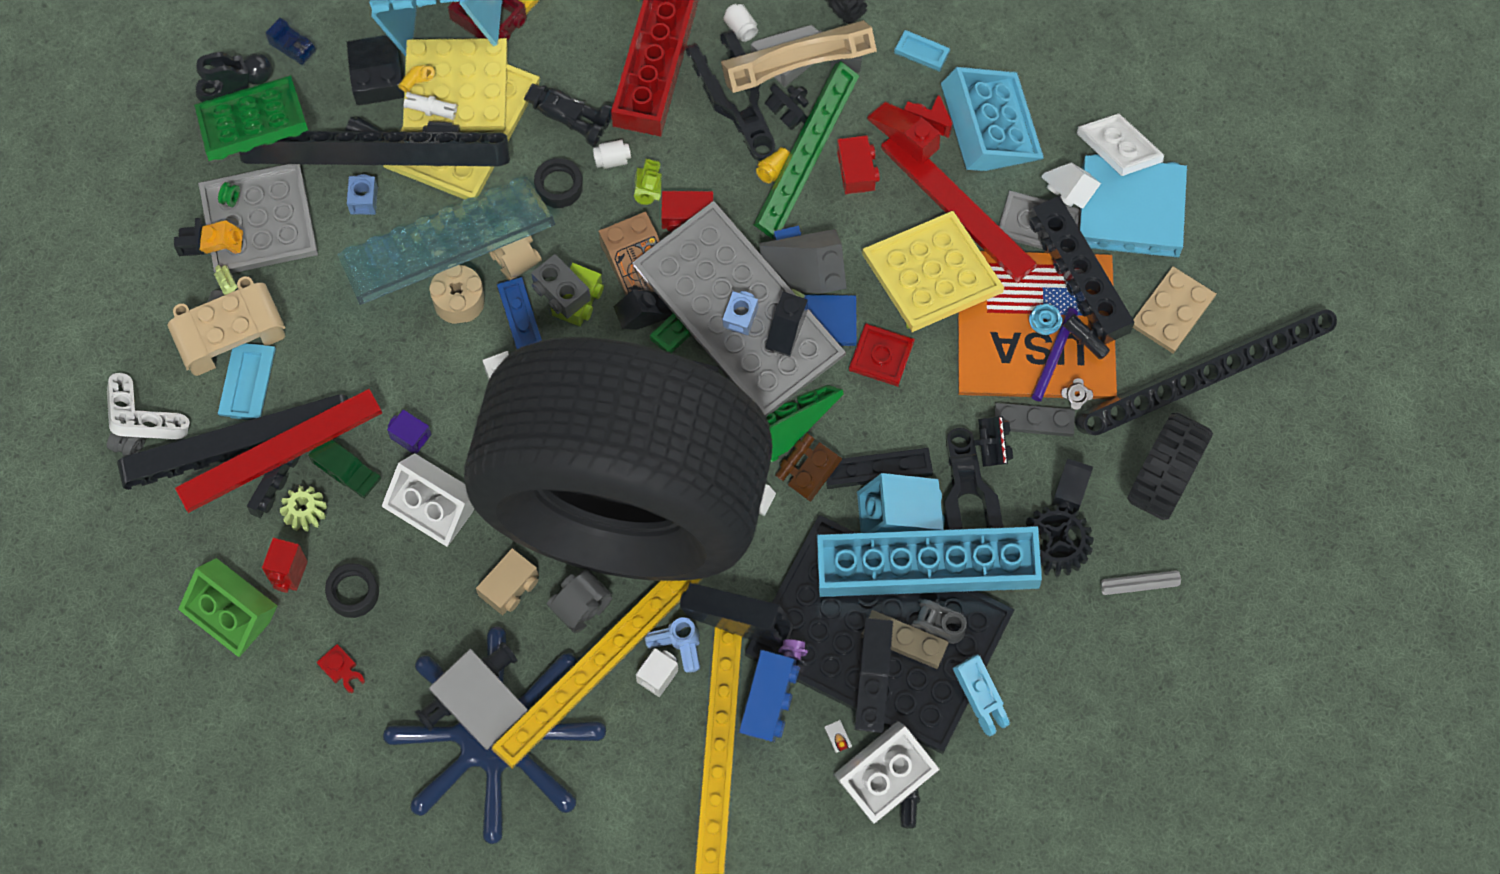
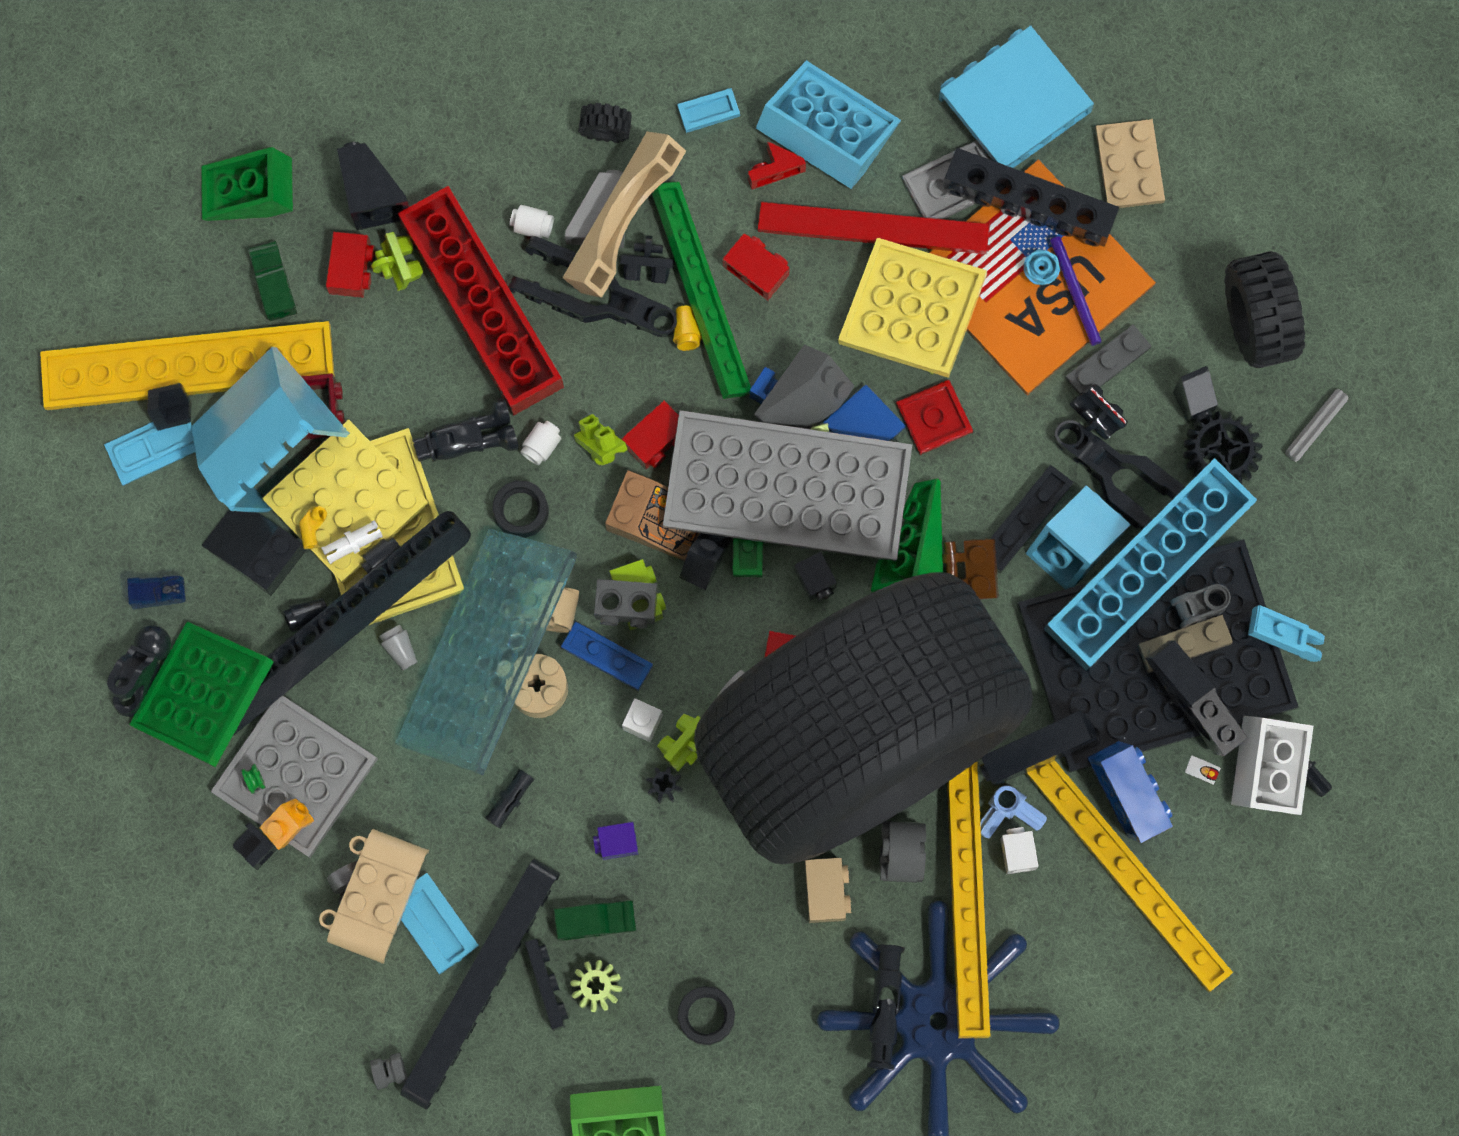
camera: 40 degrees left, 10 degrees up
(129, 416) = (370, 1045): white beam -> none
(225, 279) = (332, 856): yellowish green axle -> none
(278, 450) = (532, 959): red tile -> none
(284, 565) = (636, 1048): red brick -> none
(339, 665) = (755, 1086): red plate -> none
(356, 351) = (509, 798): none -> black pin
(362, 204) = (369, 683): medium blue brick -> none
(399, 198) = (399, 647): none -> light grey cone
(428, 499) = (692, 880): white slope -> none
(467, 428) = (668, 791): none -> black gear
(478, 699) = (909, 1009): light grey tile -> none
(740, 323) = (798, 502): light blue brick -> none
(787, 323) = (847, 465): black slope -> none
(793, 649) = (1110, 734): medium lavender plate -> none
(907, 131) = (769, 198): red slope -> none
(1072, 183) = (955, 126): white slope -> none
(1077, 401) = (1132, 313): plate -> none
(1086, 336) = (1088, 253): black axle -> none
(1120, 144) = (958, 53): white tile -> none
(1195, 371) = (1201, 207): black beam -> none

